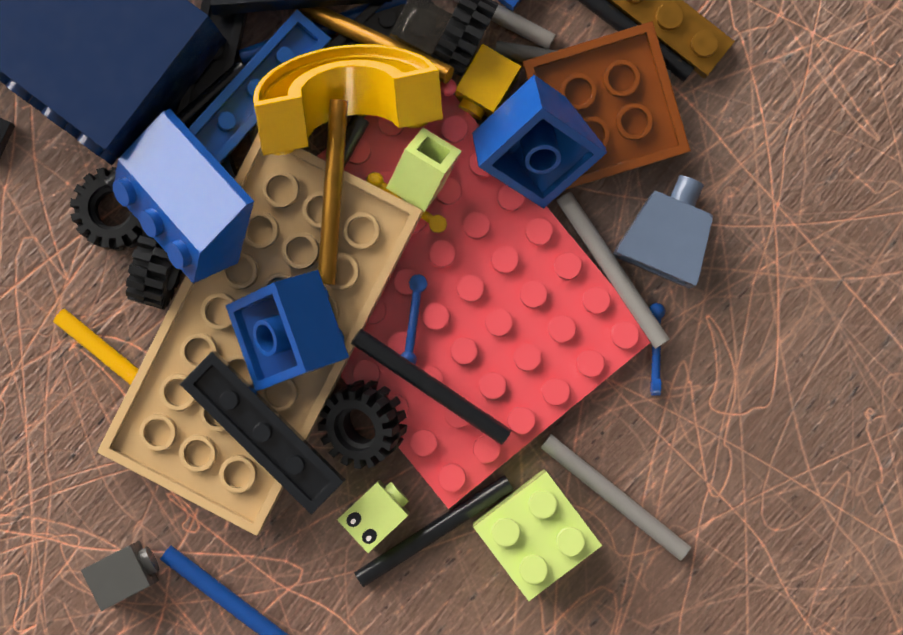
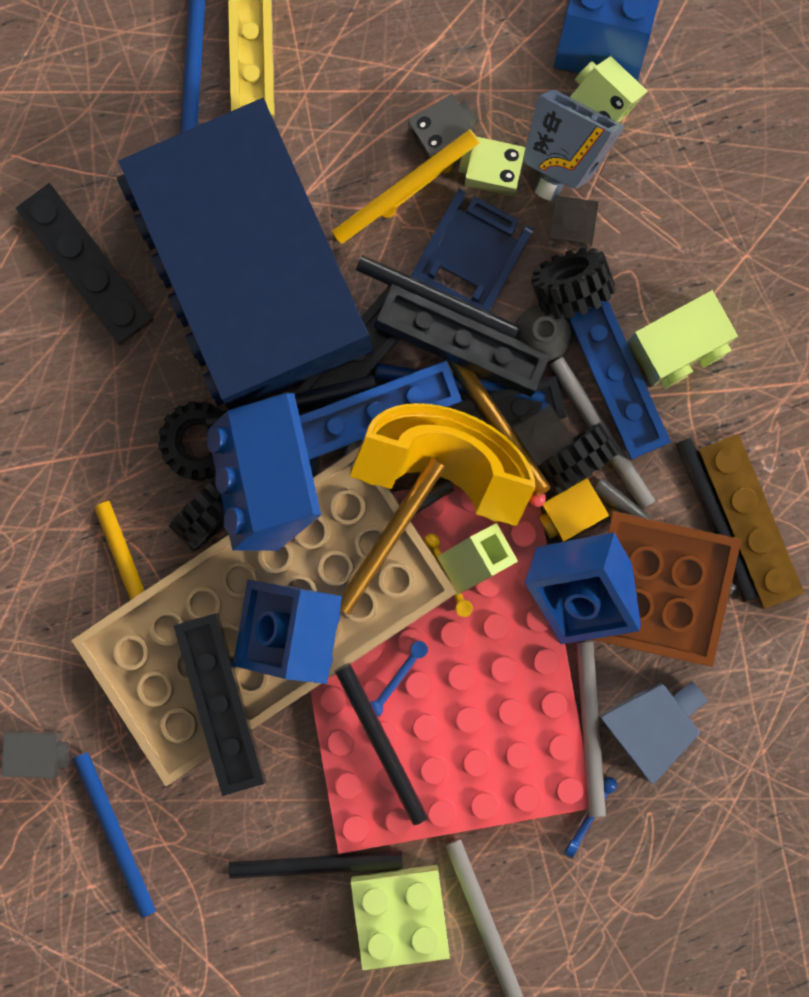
camera: 30 degrees right, 0 degrees up
(347, 439) = (285, 745): black tyre -> none
(375, 514) = (274, 823): yellowish green brick -> none

